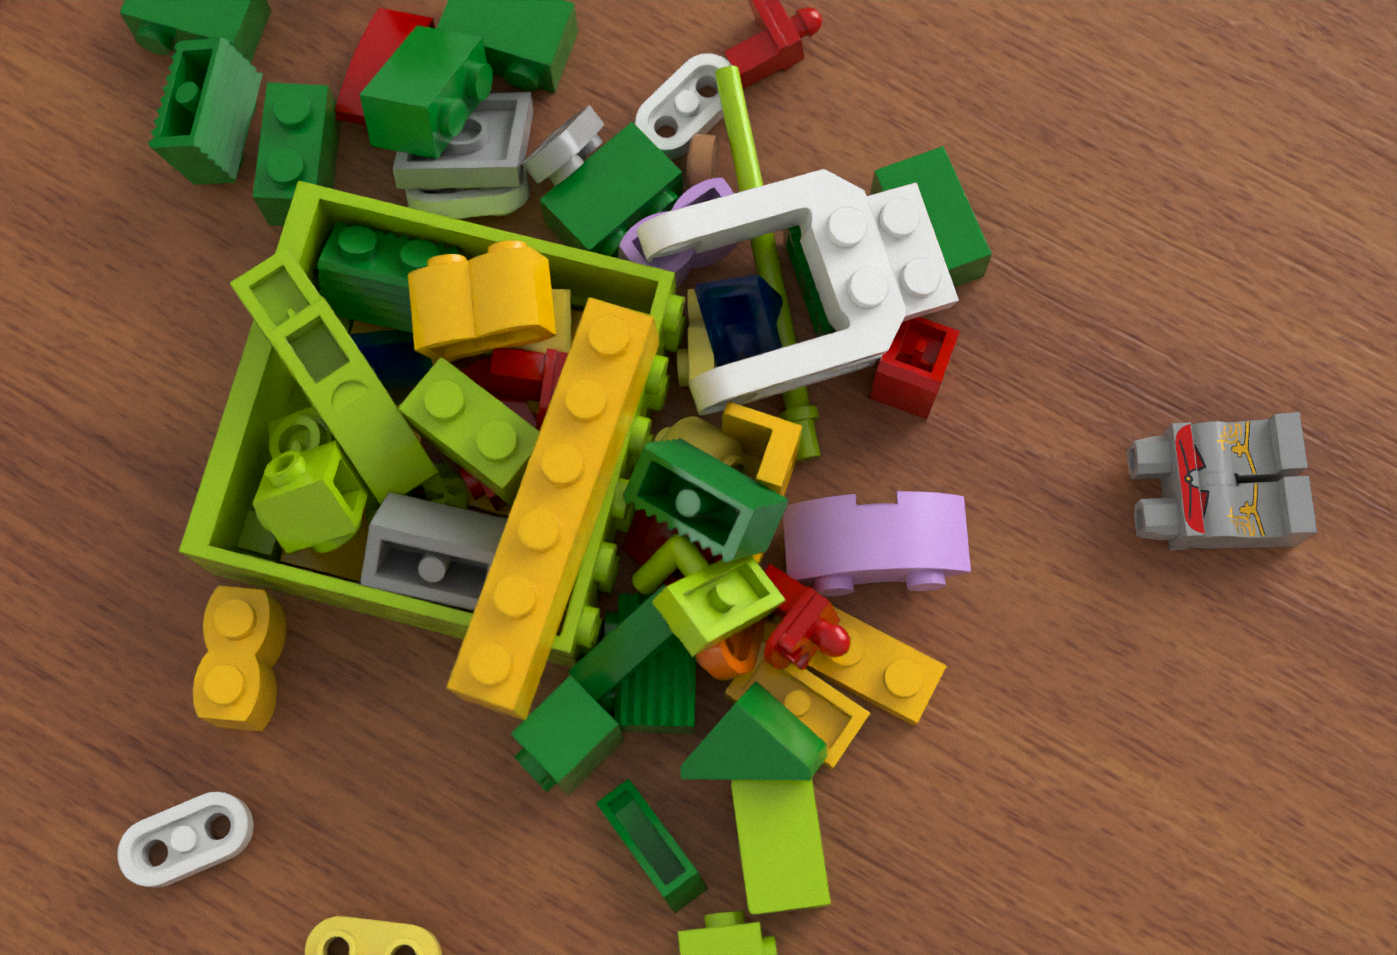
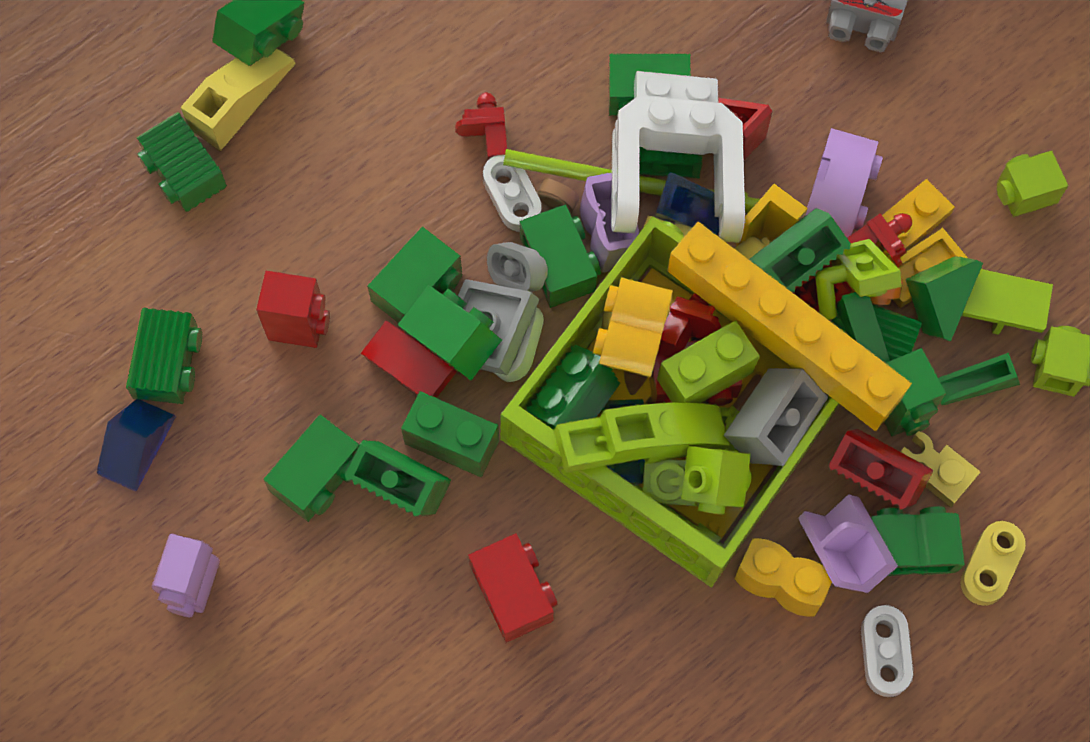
camera: 70 degrees left, 5 degrees down
(113, 310) = (512, 587): none -> red brick
(306, 726) = (849, 545): none -> lavender panel
(357, 828) = (923, 541): none -> green brick
(435, 744) = (880, 468): none -> red brick
(489, 842) = (951, 471): none -> light yellow plate
(1003, 823) = (1031, 183): none -> lime brick

